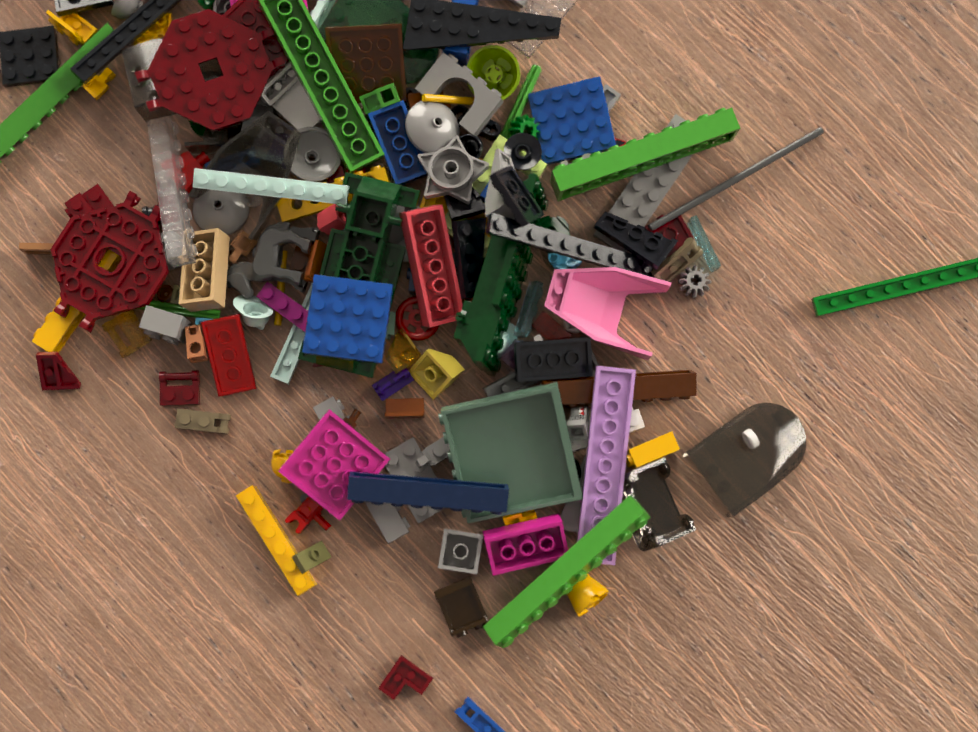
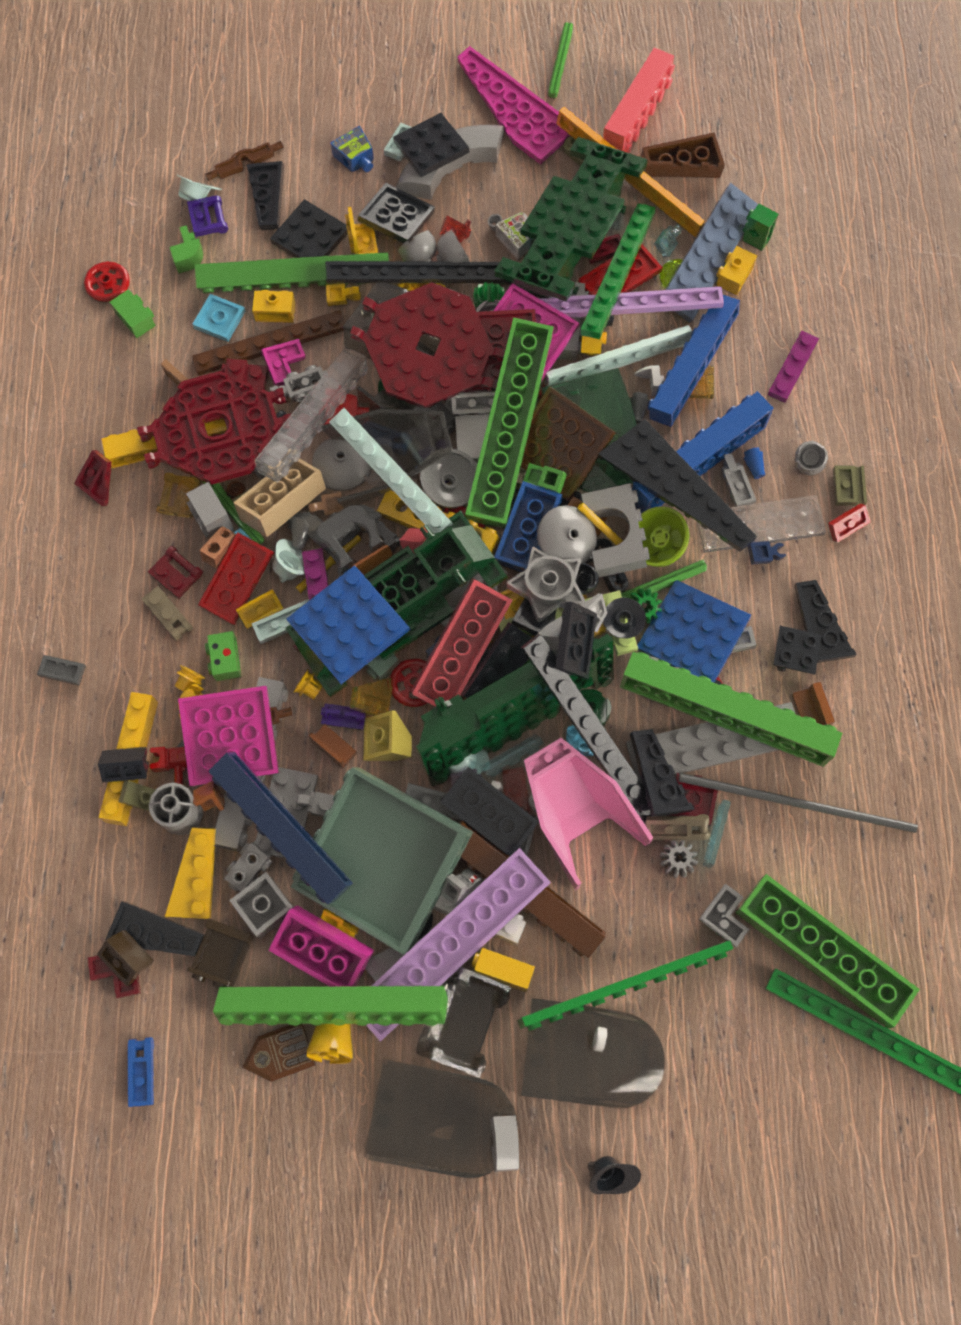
camera: 45 degrees right, 10 degrees down
(25, 177) = (219, 317): none -> medium azure plate
(58, 134) = (274, 306): none -> yellow brick
(81, 164) = (251, 347): none -> reddish brown plate
(101, 170) = (278, 358): none -> dark pink plate
(137, 173) = (302, 381): none -> light grey brick
(168, 525) = (61, 670): none -> dark grey plate
(263, 452) = (187, 678): none -> yellow piece
(265, 361) = (259, 608): none -> yellow plate
(272, 415) = (223, 656): none -> bright green brick
(281, 546) = (123, 764): none -> black hinge
(344, 543) = (174, 809): none -> light grey cylinder
(350, 382) = (308, 685): none -> yellow piece
(358, 515) = (209, 796): none -> dark orange panel
(400, 577) = (194, 880): none -> yellow wing
(402, 634) = (155, 931): none -> black wing
(403, 665) = (124, 957): none -> dark brown panel
(426, 537) = (249, 868): none -> light grey brick
(557, 631) = (279, 1053): none -> reddish brown tile
(570, 23) = (763, 553): none -> dark blue plate
(649, 75) = (797, 650): none -> black hinge
(655, 47) = (820, 620): none -> black wing
(691, 104) = (814, 704): none -> dark orange panel
(695, 578) = (434, 1120): none -> clear smoke windscreen
(734, 398) = (618, 989): none -> green plate
(751, 555) = (506, 1143): none -> light grey slope
(752, 297) = (719, 917): none -> light grey brick
(825, 514) = (612, 1177): none -> black piece
(834, 258) = (828, 952): none -> bright green brick

